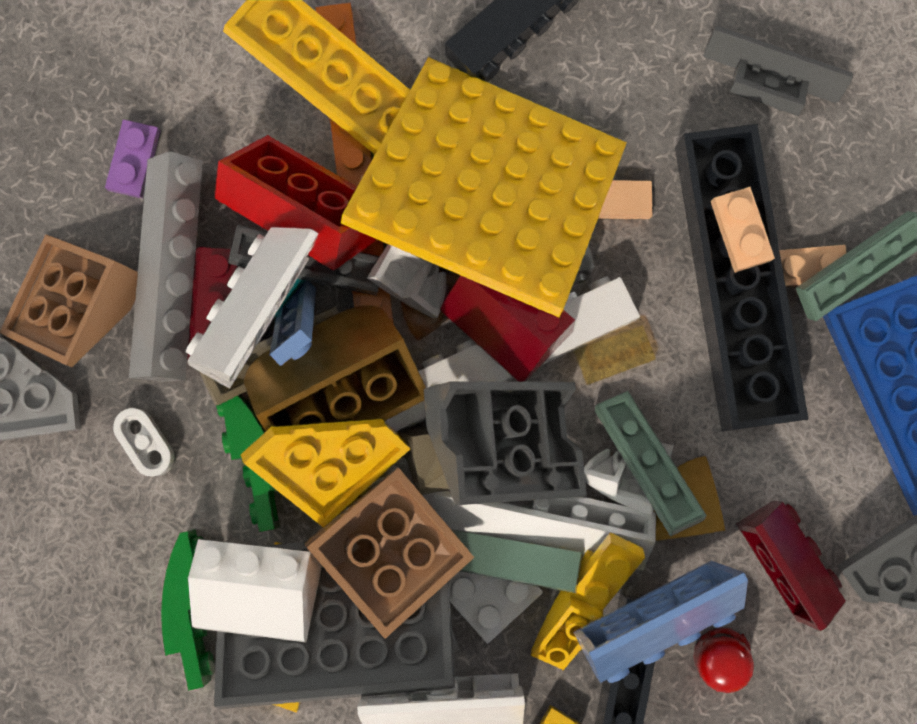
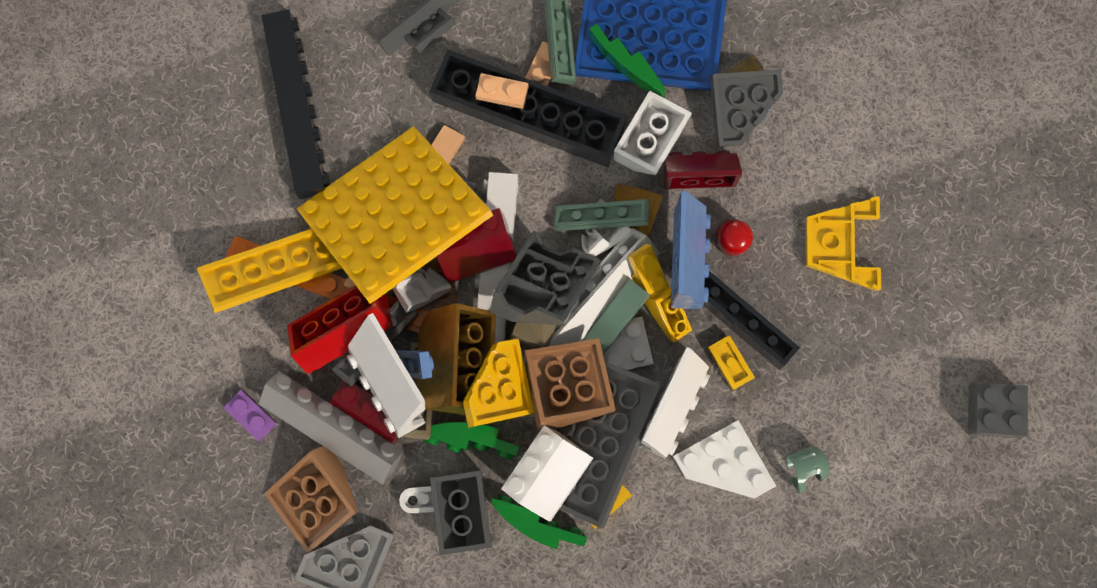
camera: 60 degrees left, 5 degrees down
(145, 502) = (461, 512): none -> dark grey slope
(614, 355) = (531, 201): clear yellow tile -> none
(802, 468) = (651, 134): none -> white slope
(882, 389) = (633, 67): none -> green slope

